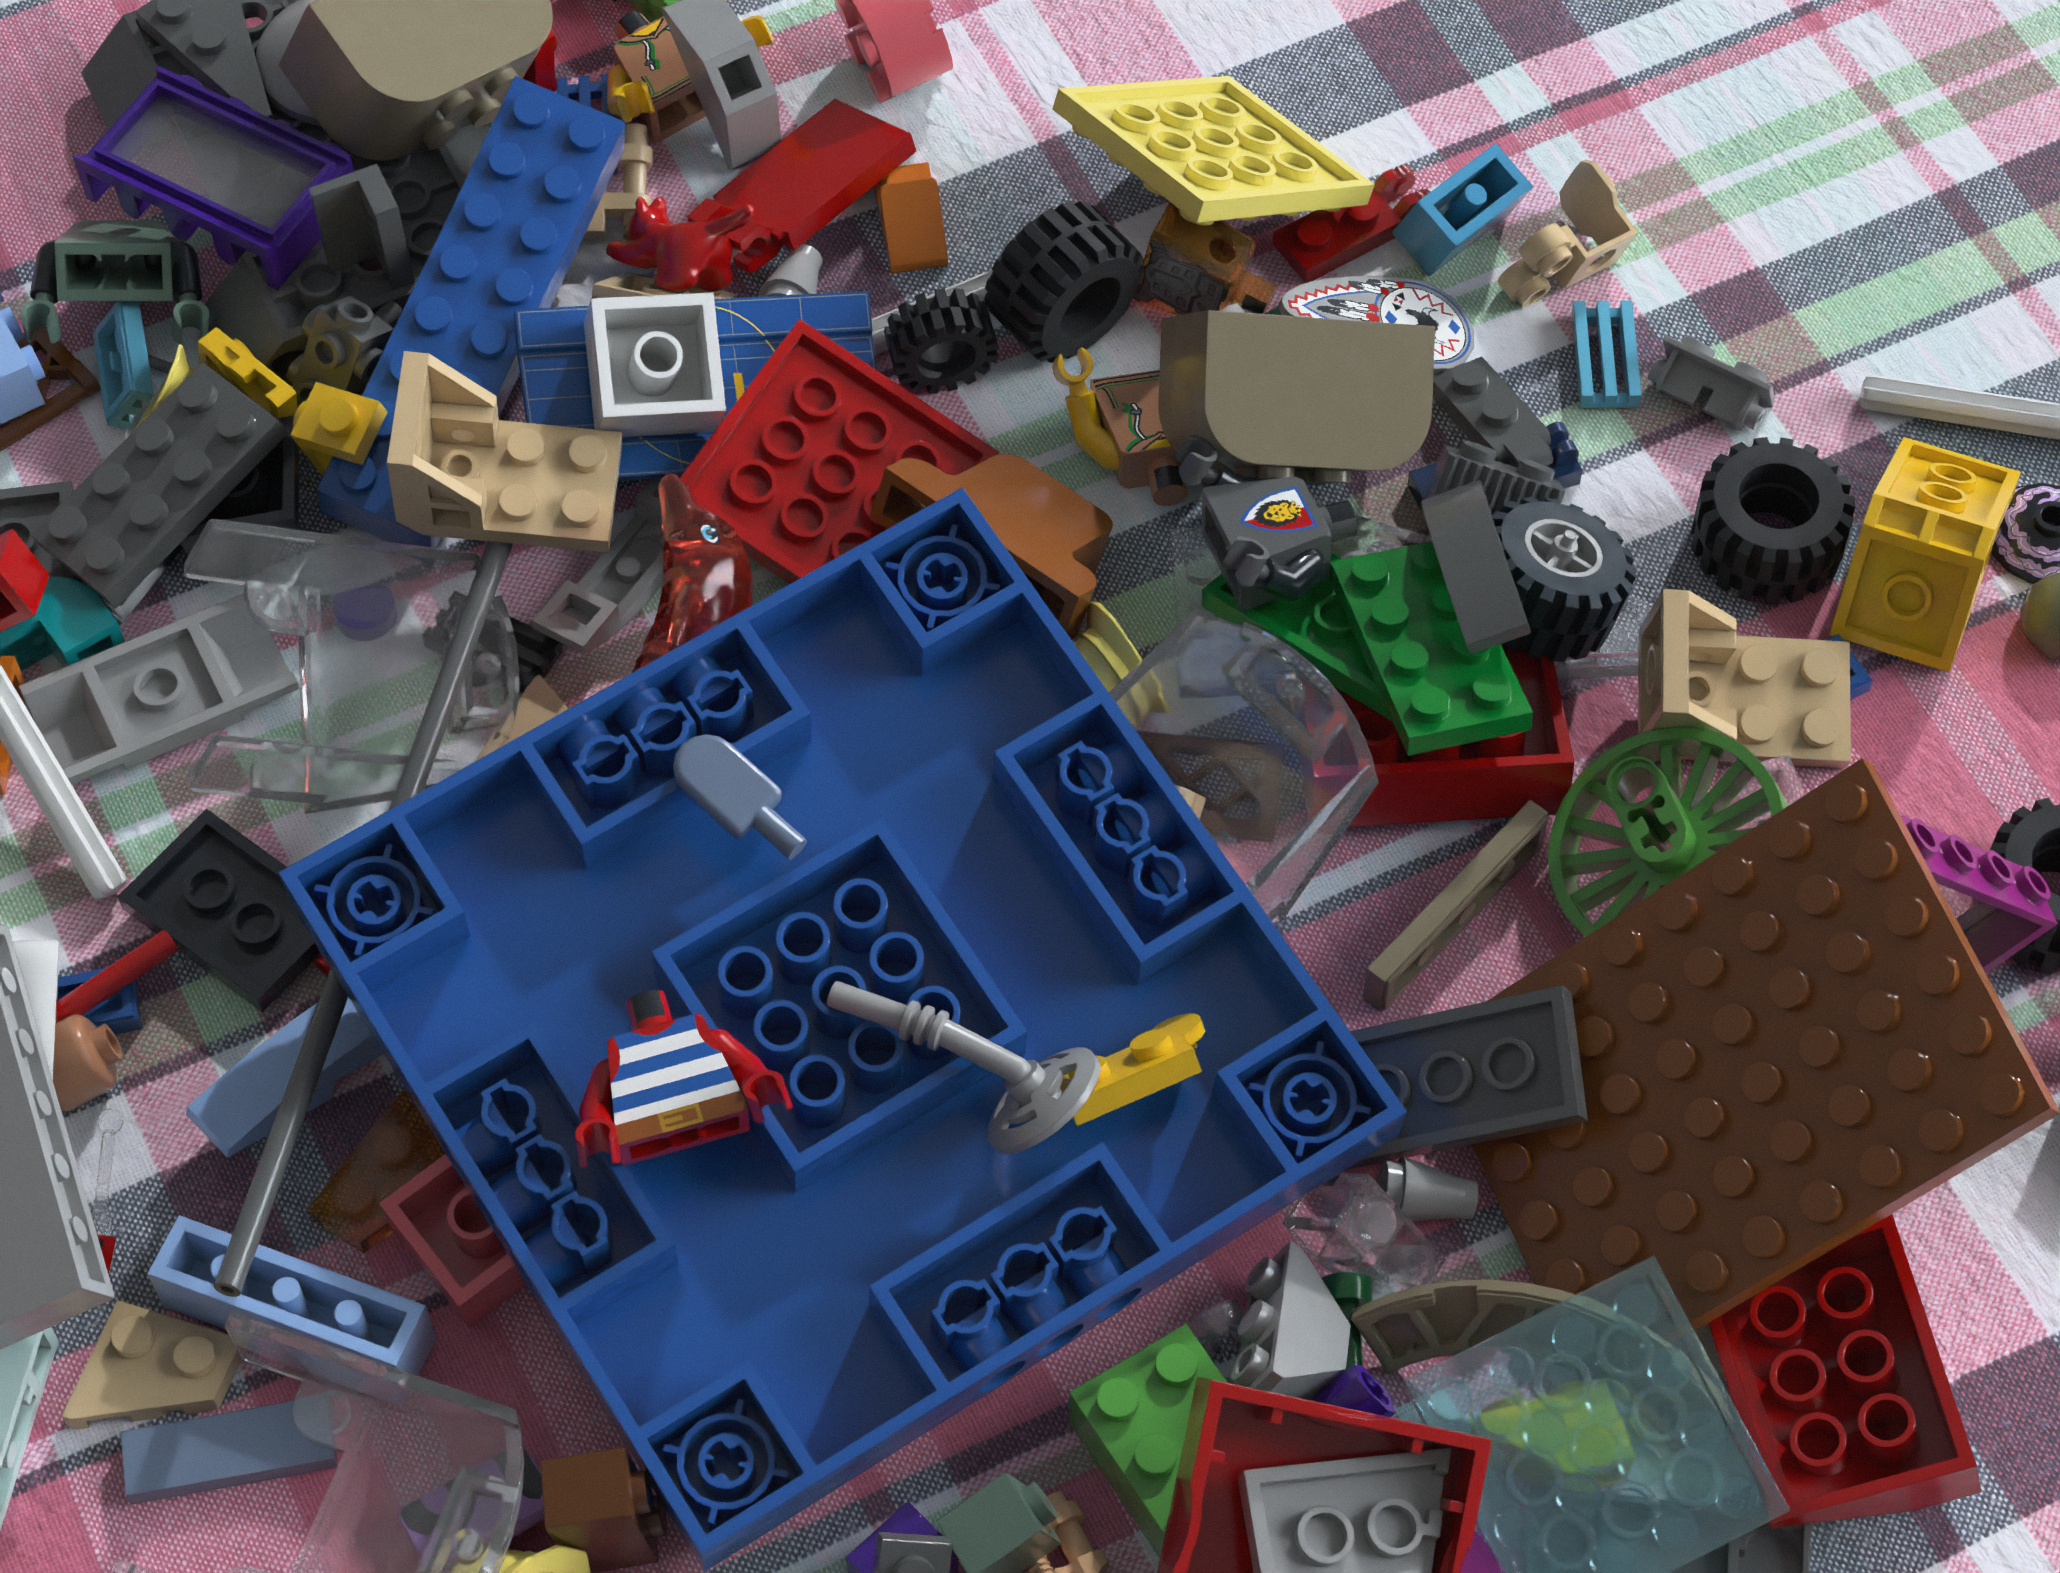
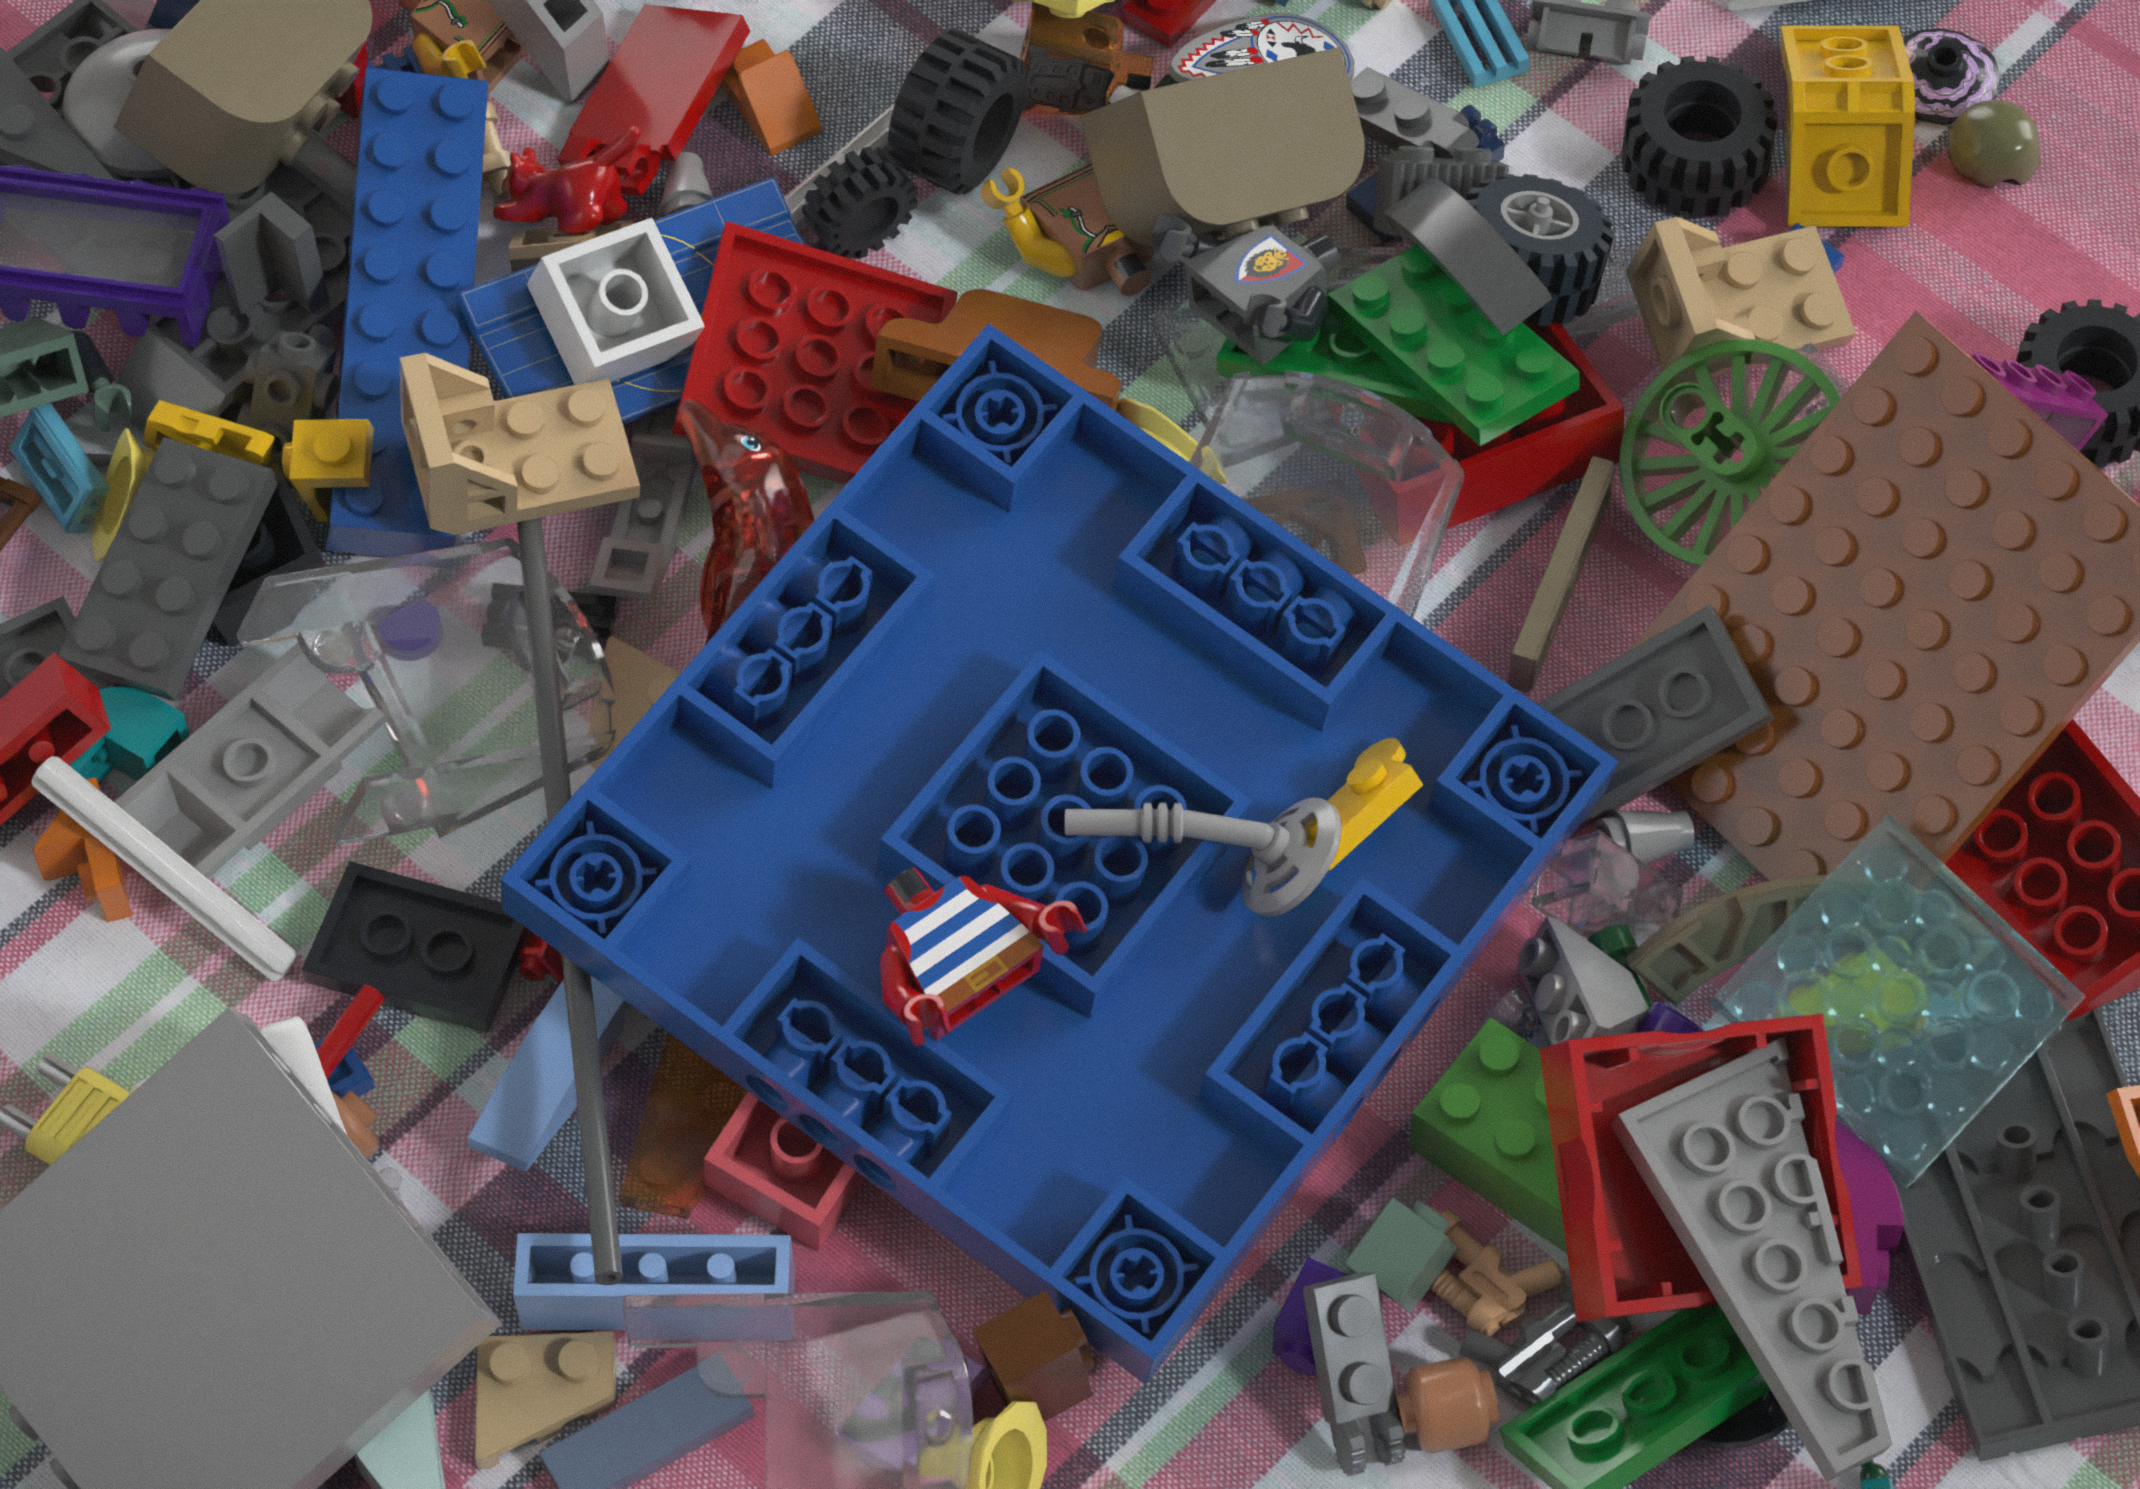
camera: 20 degrees left, 0 degrees up
(734, 792) = (897, 668): sand blue piece -> none

